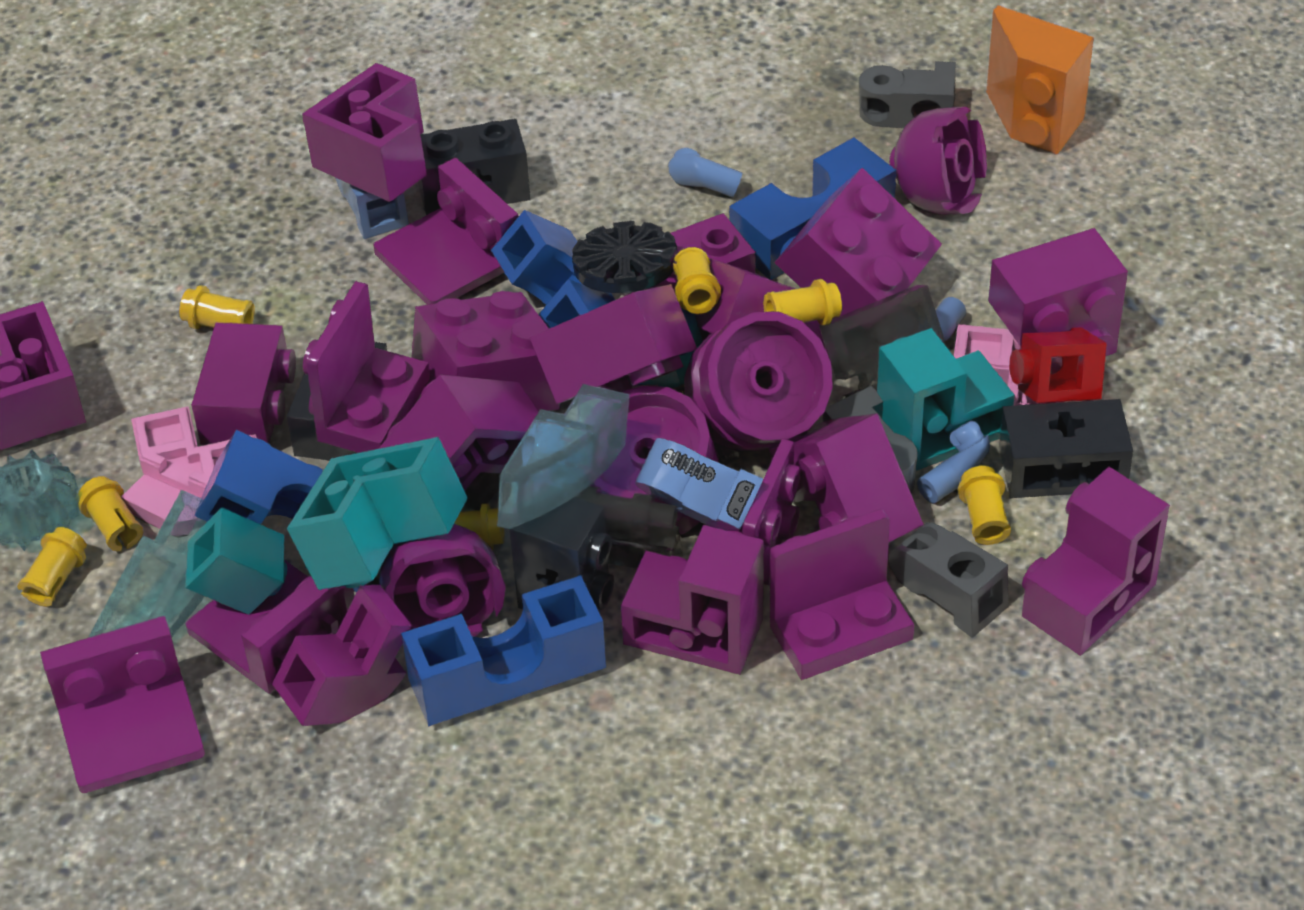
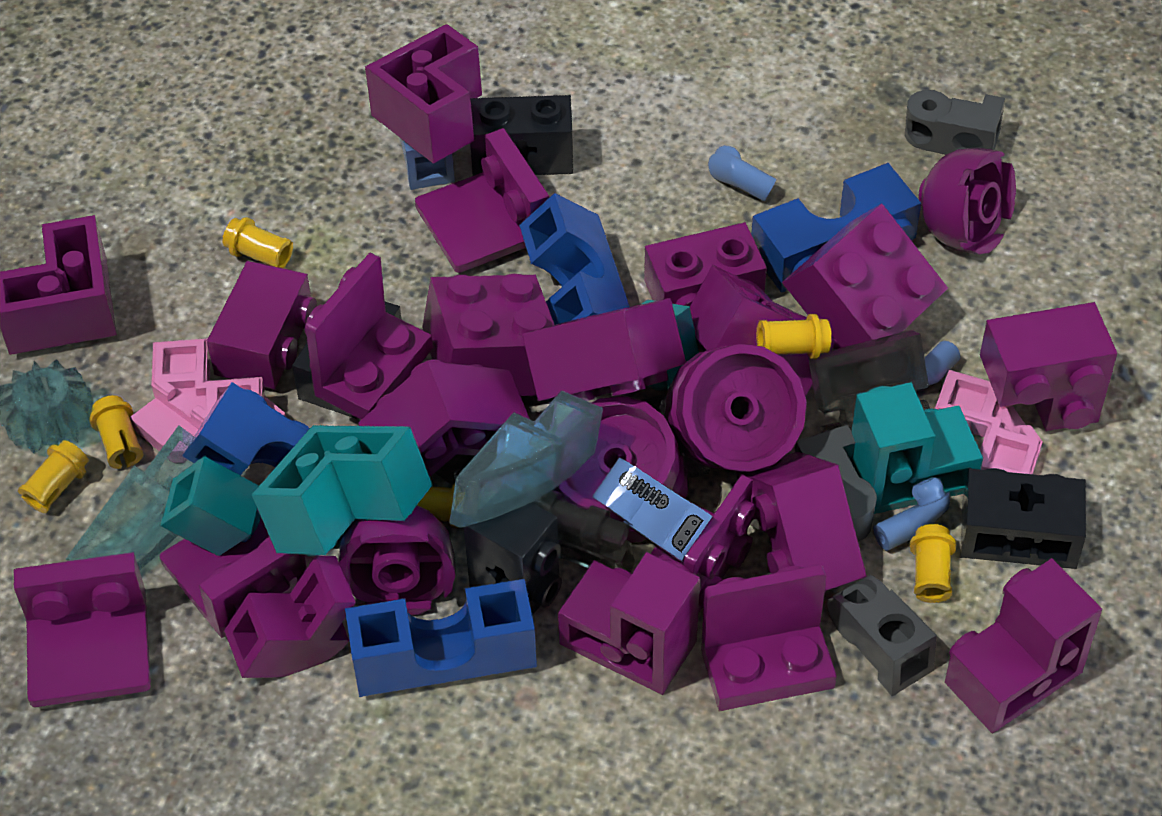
camera: 10 degrees right, 5 degrees up
(624, 257) = (640, 257): black wheel -> none
(696, 286) = (697, 302): yellow pin -> none
(1038, 78) = (1081, 128): orange slope -> none
(1072, 374) = (1033, 436): red brick -> none

